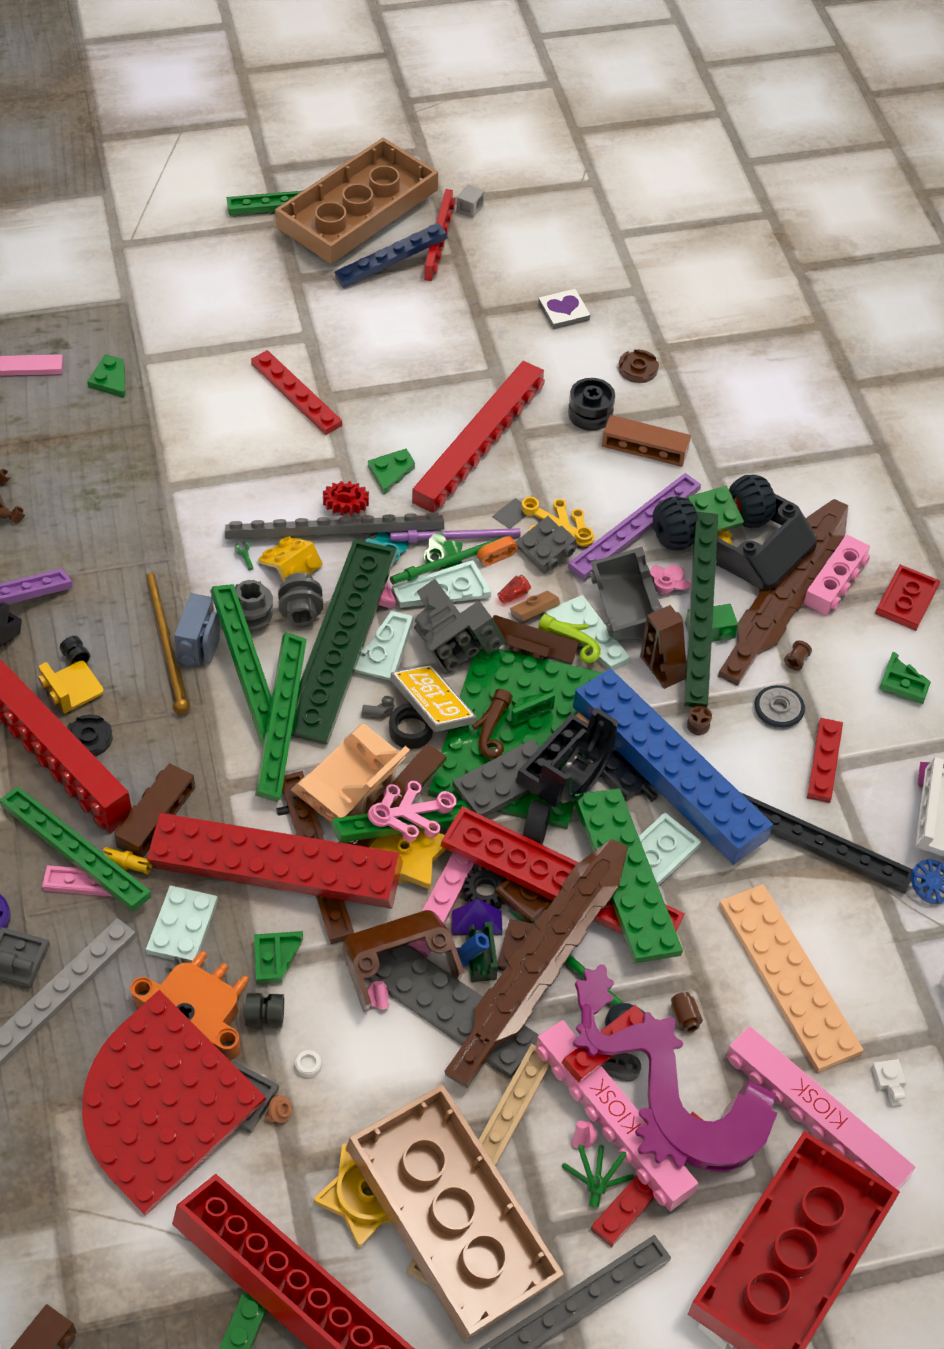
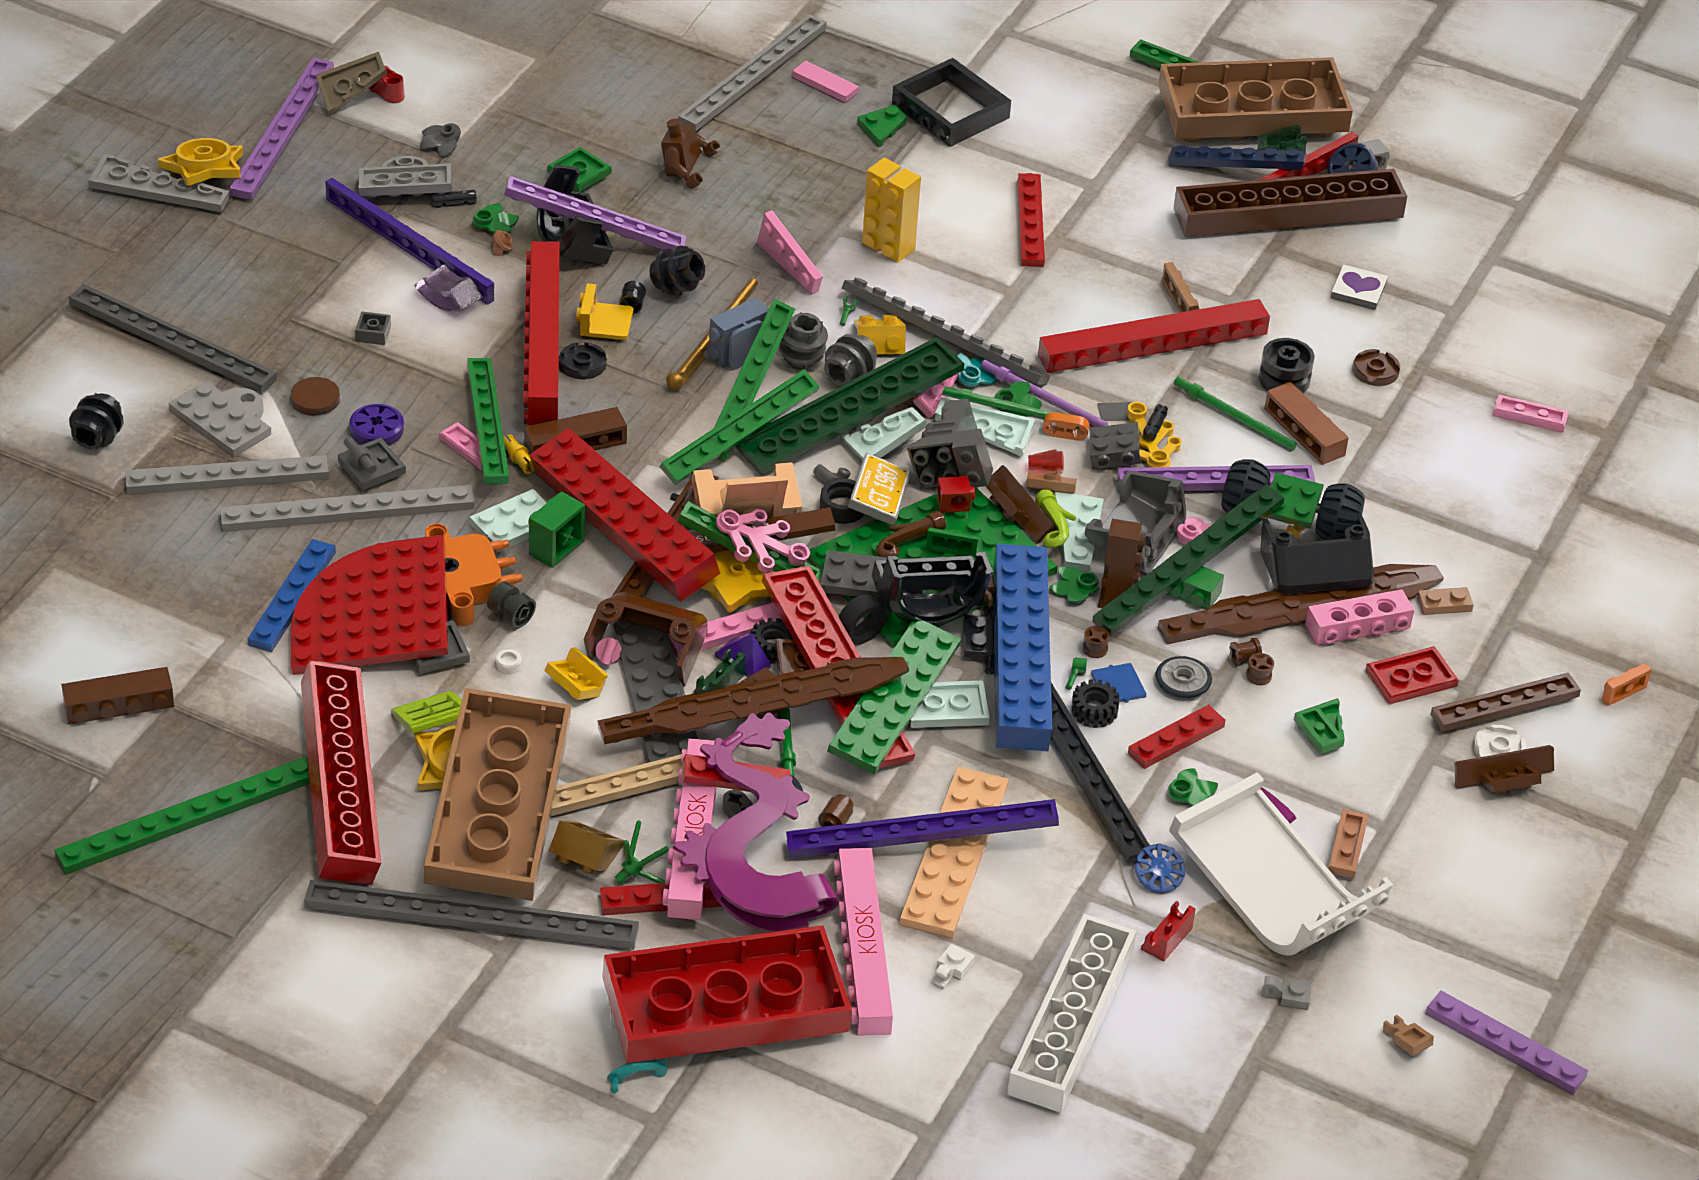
camera: 40 degrees right, 10 degrees down
(71, 1139) = (281, 609): none -> blue plate
(93, 605) = (677, 270): none -> black piece
(148, 305) = (995, 104): none -> black window
(155, 533) = (785, 250): none -> bright pink wing
(213, 449) = (891, 209): none -> yellow piece
(233, 913) = (556, 529): none -> green brick
(275, 955) = (560, 579): green wing -> none
(278, 1110) = (454, 671): nougat plate -> none
(322, 1171) = (428, 712): none -> lime piece
(345, 498) = (977, 315): red gear -> none
(379, 1036) = (577, 675): none -> yellow bracket
(391, 468) = (1048, 319): green wing -> none
(405, 224) = (1283, 139): none -> clear green hinge
(458, 270) = (1289, 202): none -> reddish brown brick
(459, 388) = (1178, 289): none -> medium nougat plate
(472, 948) = (710, 663): blue bar -> none
(479, 225) = (1352, 154): none -> dark blue wheel
(492, 665) = (955, 494): none -> red brick
(545, 1193) = (585, 846): none -> pearl gold slope
(549, 463) = (1197, 392): none -> green bar
(554, 507) = (1155, 422): none -> black axle
(584, 1134) = (660, 831): bright pink plate -> none
(640, 684) = (1075, 584): none -> green plate
(707, 750) = (1078, 666): none -> green hand
(743, 743) = (1123, 678): none -> blue piece
(756, 762) = (1095, 714): none -> black tyre
(762, 980) = (922, 828): none -> dark purple plate
(764, 339) = (1530, 413): none -> bright pink tile
(825, 659) = (1260, 669): none -> reddish brown wheel
(866, 522) = (1445, 601): none -> medium nougat plate
(881, 795) = (1191, 789): none -> green plate

